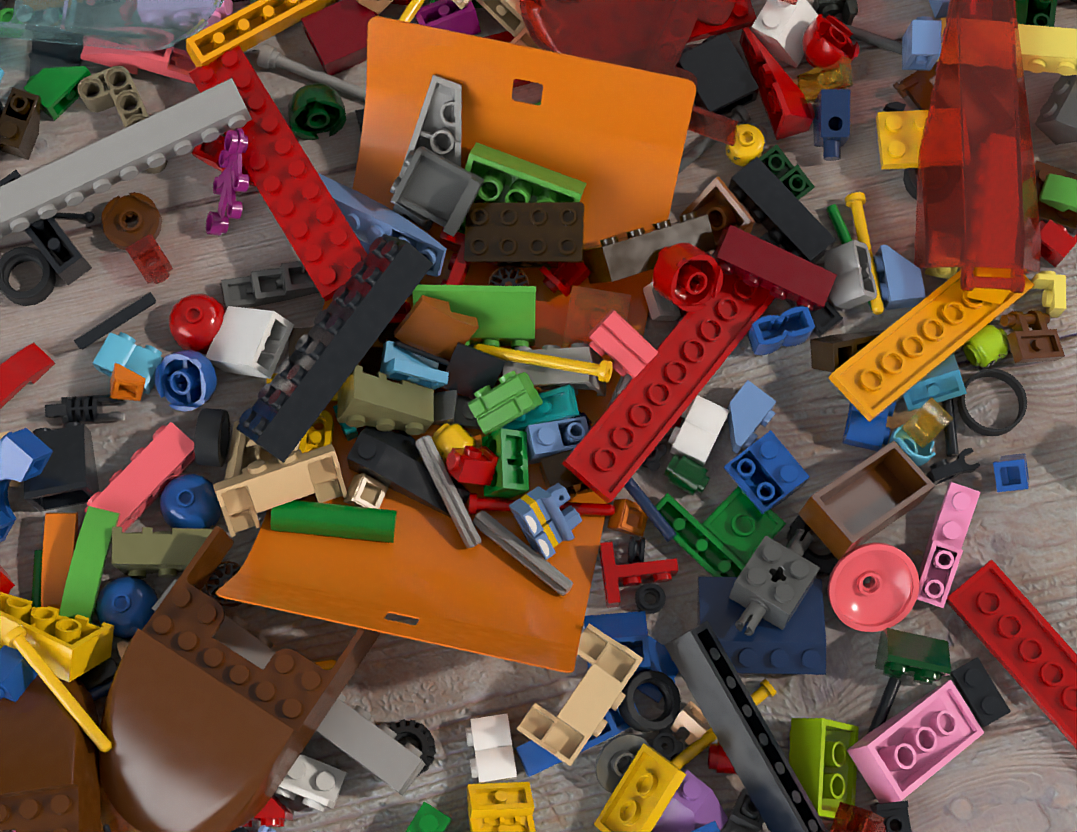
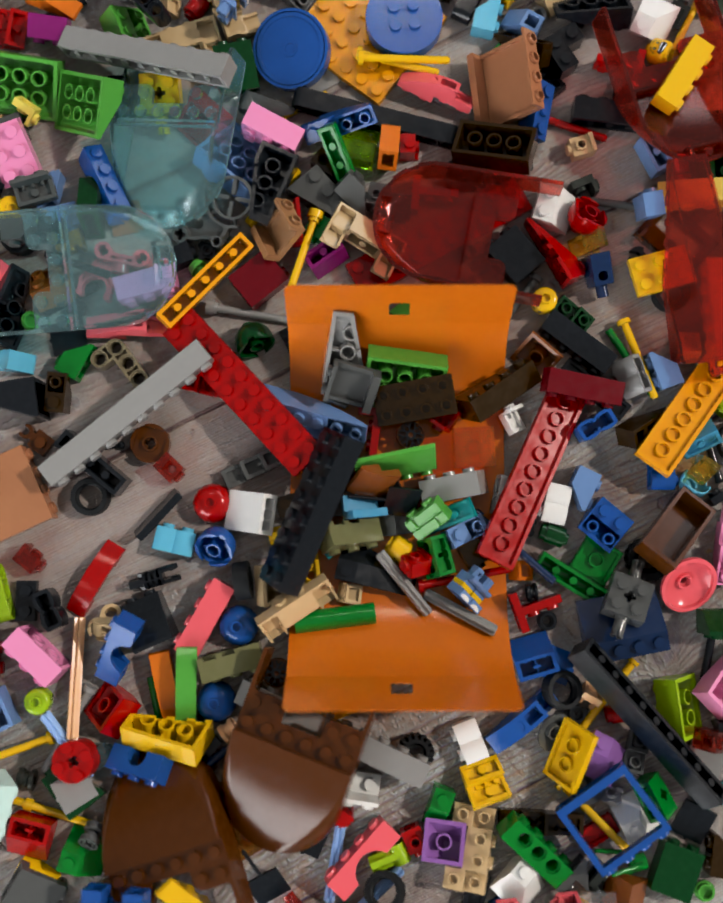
camera: 10 degrees left, 10 degrees up
(17, 638) = (189, 774): yellow bar -> none
(126, 384) = (177, 558): orange slope -> none
(229, 182) = (211, 406): magenta plant -> none
(590, 701) = (535, 691): tan bracket -> none
(602, 370) = (482, 486): yellow bar -> none
(622, 344) = (496, 463): coral brick -> none
(687, 276) = (528, 407): red brick -> none

